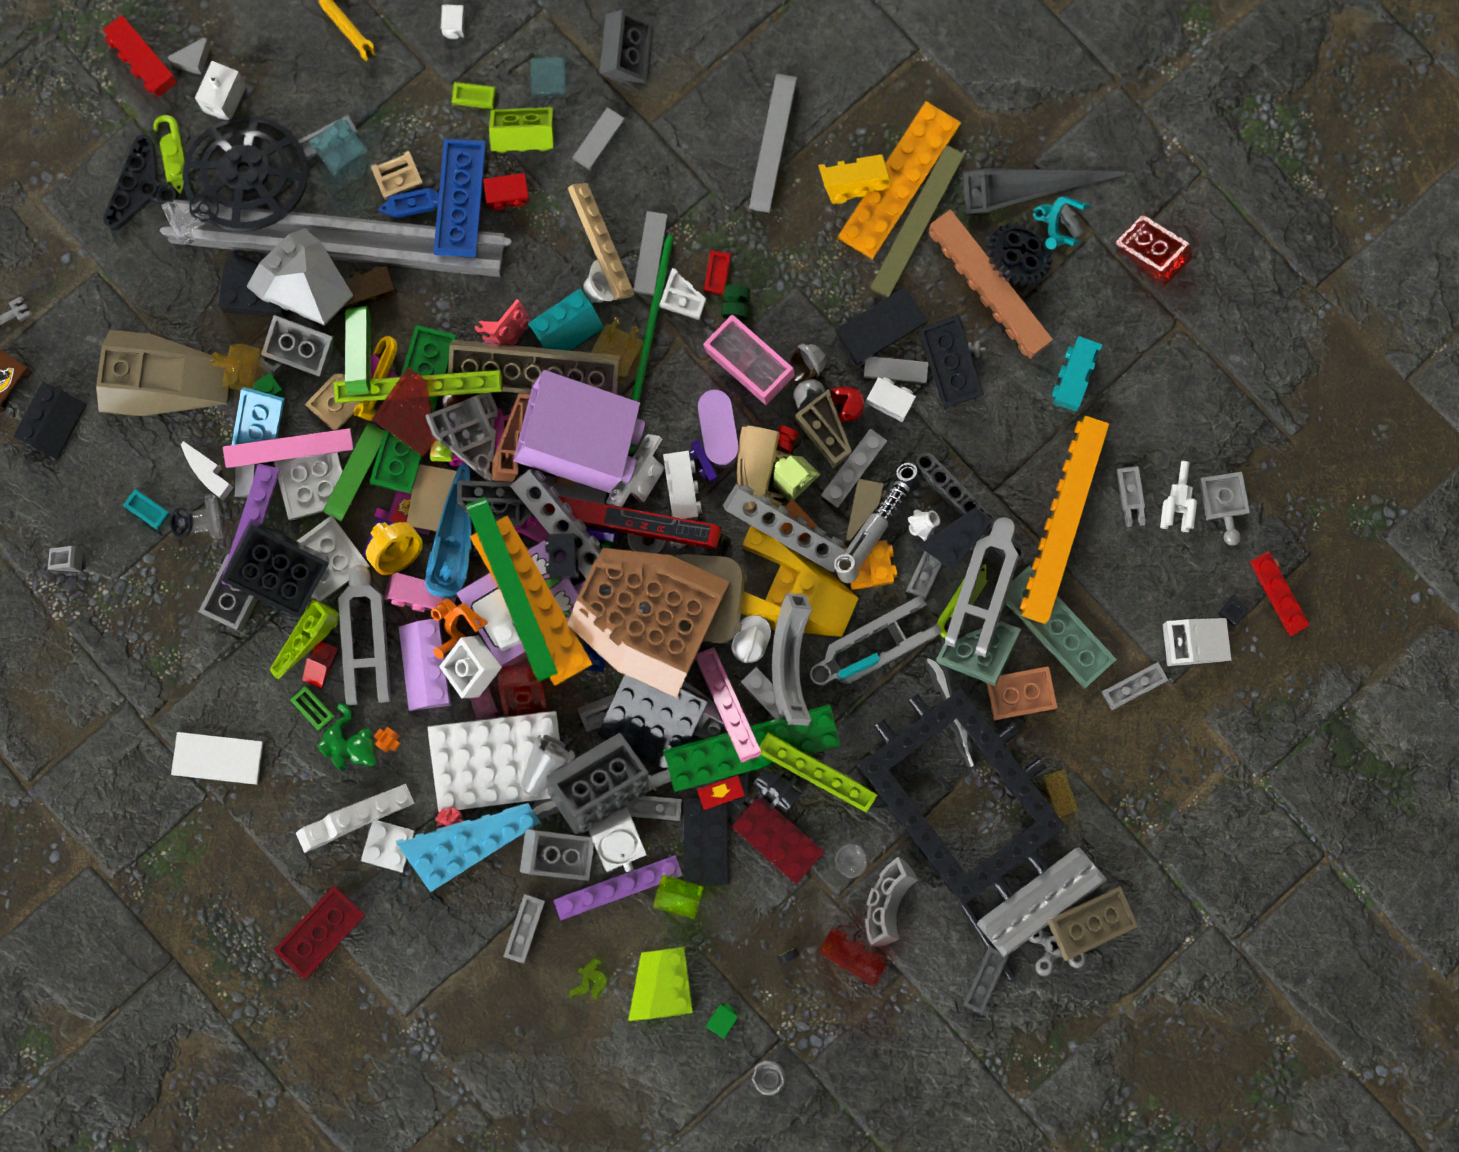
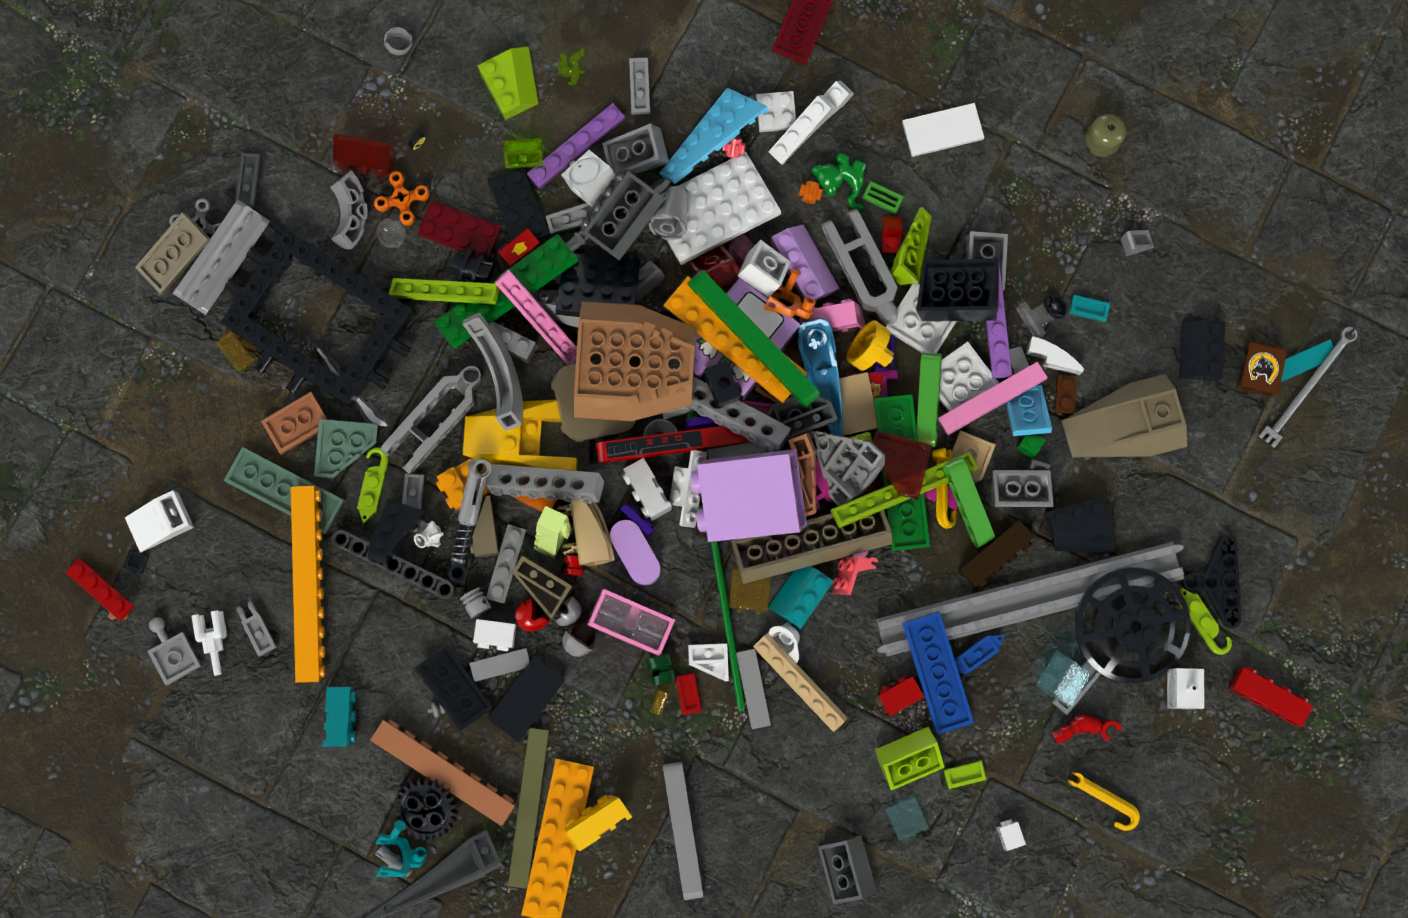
camera: 155 degrees right, 0 degrees up
(52, 689) = (1103, 140): none -> olive cylinder
(191, 57) = (1224, 713): light grey slope -> none
(191, 218) = (1165, 558): clear piece -> none
(211, 429) = (1065, 394): none -> reddish brown plate
(238, 365) = (1064, 452): clear yellow brick -> none
(301, 278) = (1042, 546): light grey wedge -> none
(332, 97) = (1082, 724): none -> red piece
(400, 180) = (997, 670): tan plate -> none
(506, 635) = (744, 299): white brick -> none
(598, 138) = (839, 776): light grey tile -> none
(722, 1020) = (452, 71): green brick -> none
(749, 273) = (659, 702): none -> clear yellow pin
(752, 640) = (539, 383): white piece -> none
(825, 908) = (394, 200): none -> orange gear
(858, 667) = (440, 389): teal tile -> none
(899, 438) = (475, 603): none -> light grey piece
(1002, 538) = (355, 540): light grey piece -> none
(1134, 686) = (201, 466): light grey tile -> none
(1155, 249) = (307, 860): clear red slope -> none

